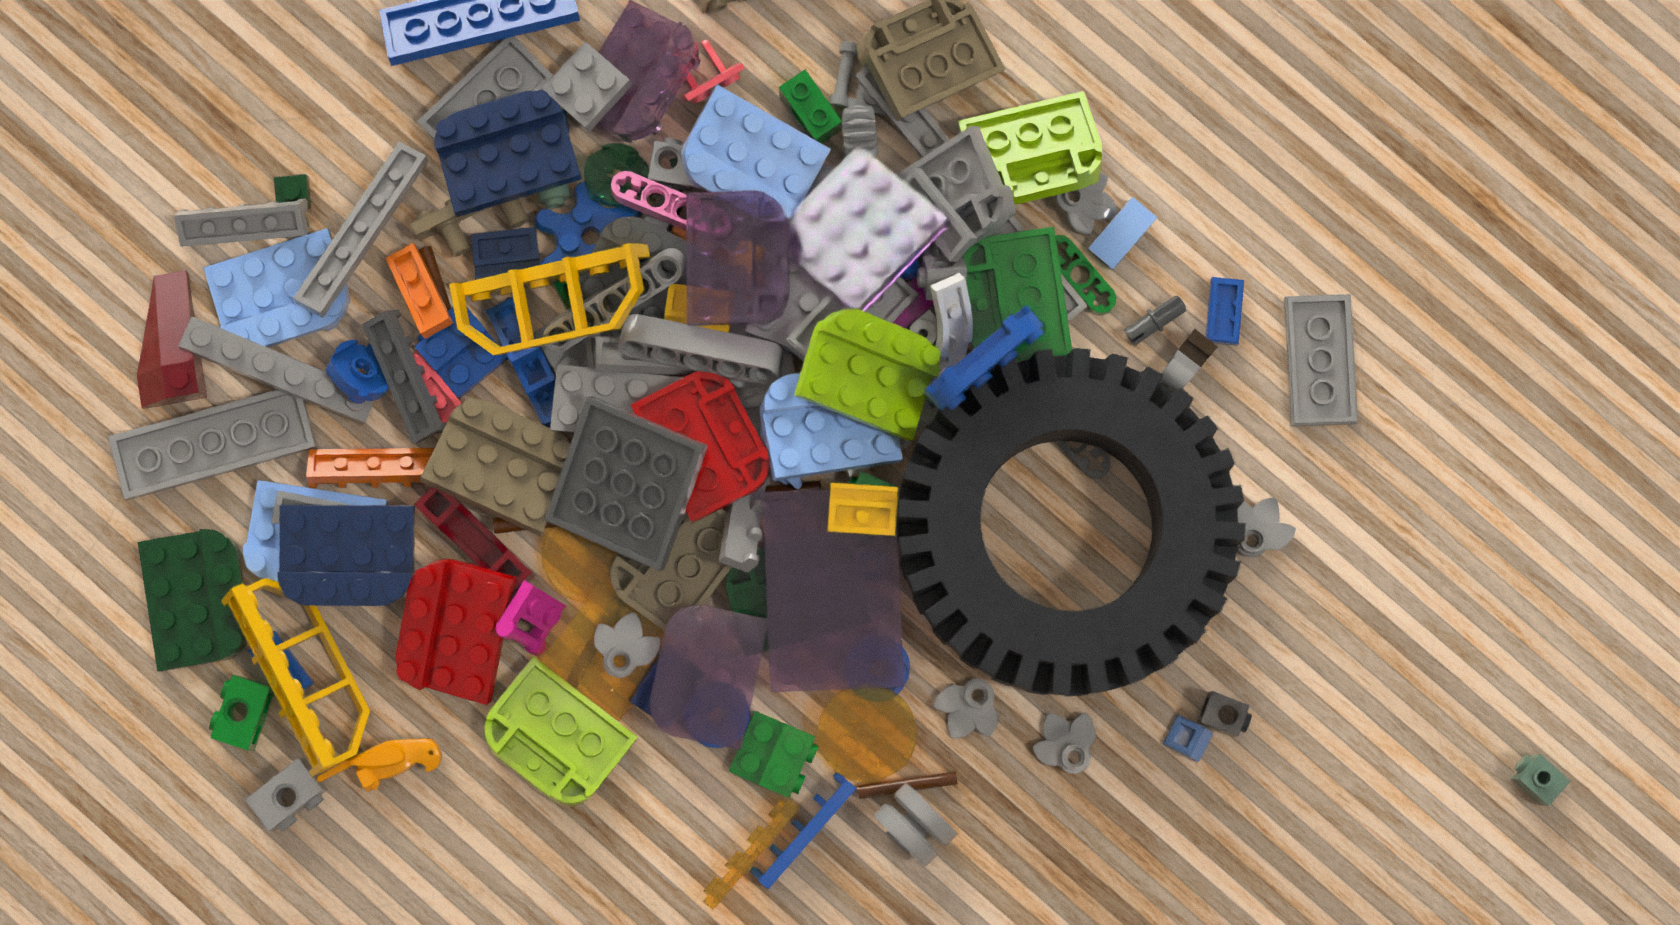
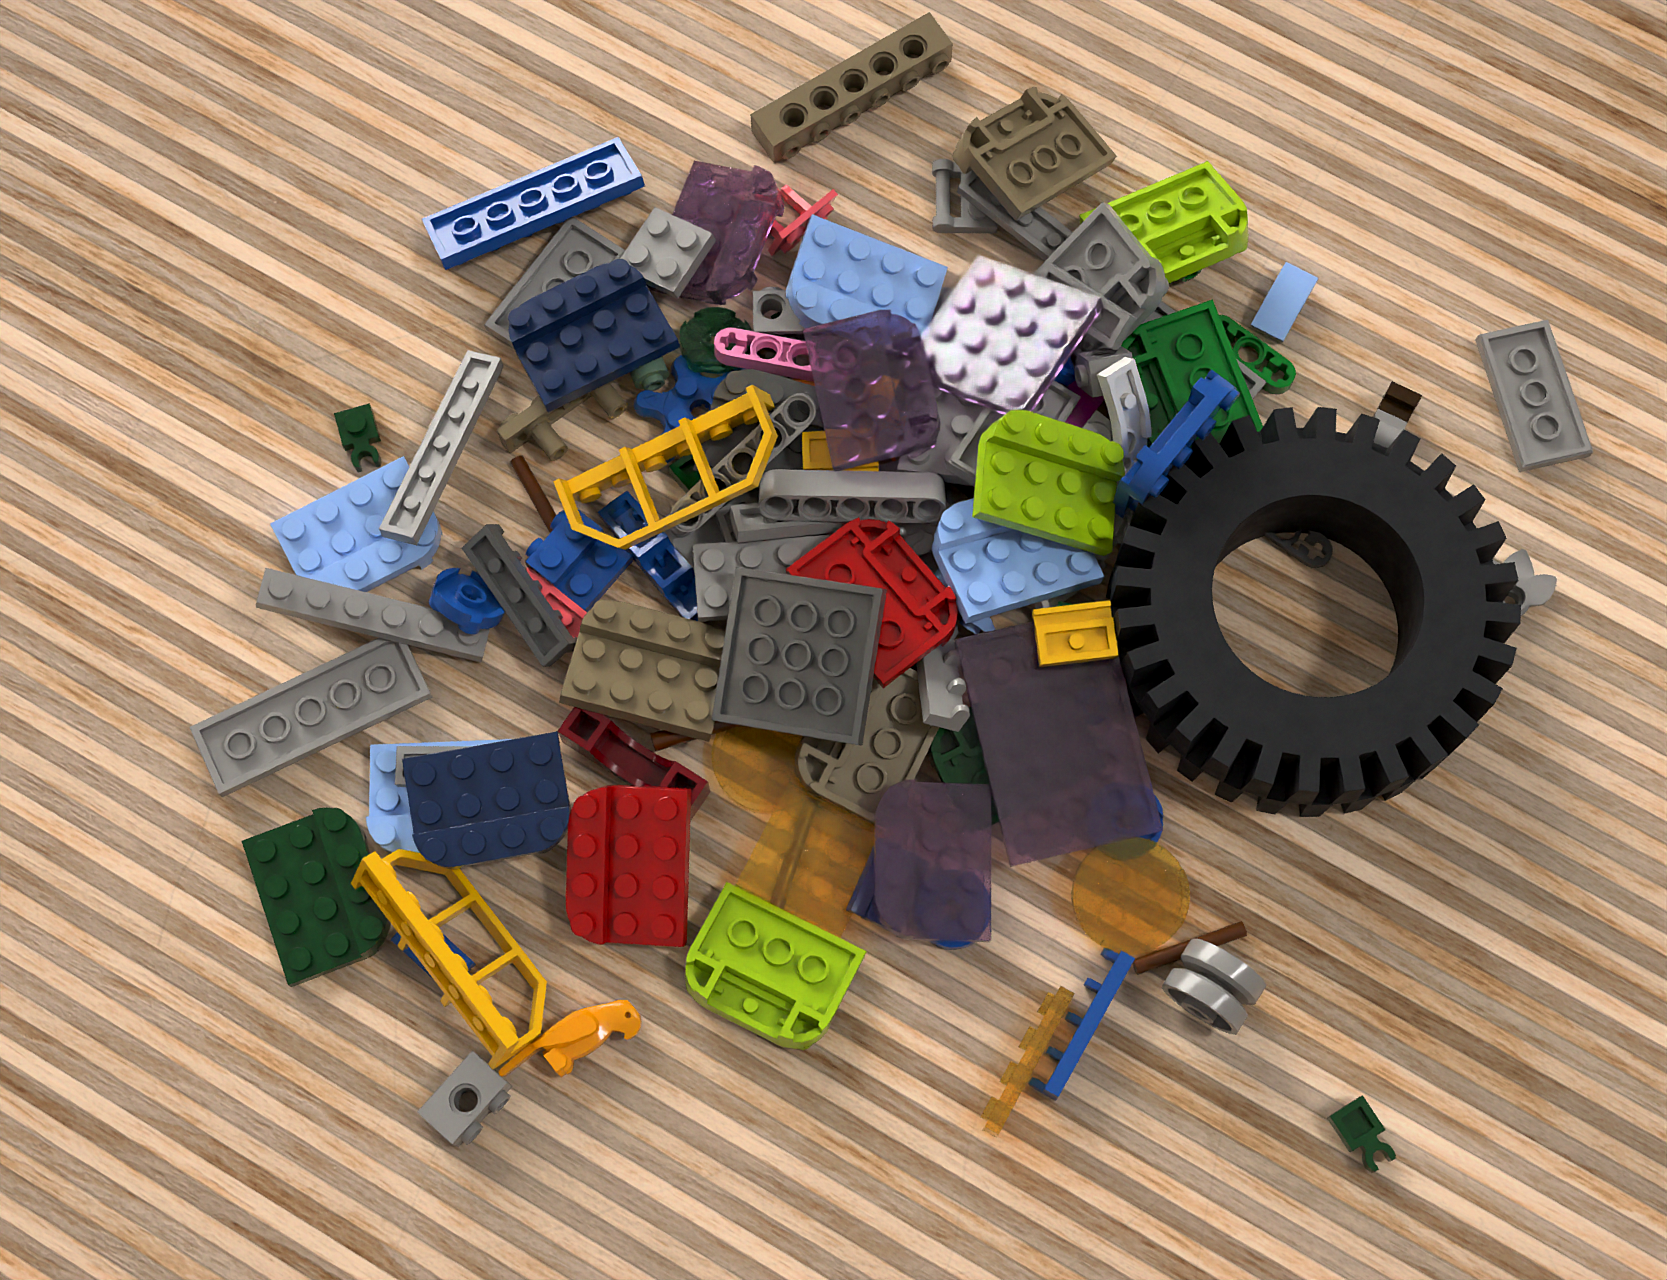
camera: 10 degrees left, 10 degrees down
(164, 371) = (246, 639): dark red wedge -> none
(242, 223) = (306, 466): light grey hinge -> none
(256, 698) = (405, 1034): green brick -> none
(366, 466) = (494, 705): orange hinge -> none
(419, 290) = (519, 501): orange plate -> none
(504, 251) = (602, 440): dark blue plate -> none
(535, 608) = (721, 825): dark pink plate -> none
(627, 641) = (831, 841): light grey plate -> none
(774, 755) = (1029, 942): green plate -> none
(810, 107) = (913, 229): green brick -> none
(860, 129) = (973, 238): light grey gear -> none
(965, 712) = (1236, 852): light grey plate -> none
(1063, 738) = (1356, 859): light grey plate -> none
(1089, 206) = (1238, 280): light grey plate -> none
(1155, 320) = (1343, 384): dark grey axle -> none
(1188, 738) = (1497, 832): medium blue slope -> none
(1210, 710) = (1516, 797): black brick -> none
(1224, 310) = (1416, 360): blue plate -> none

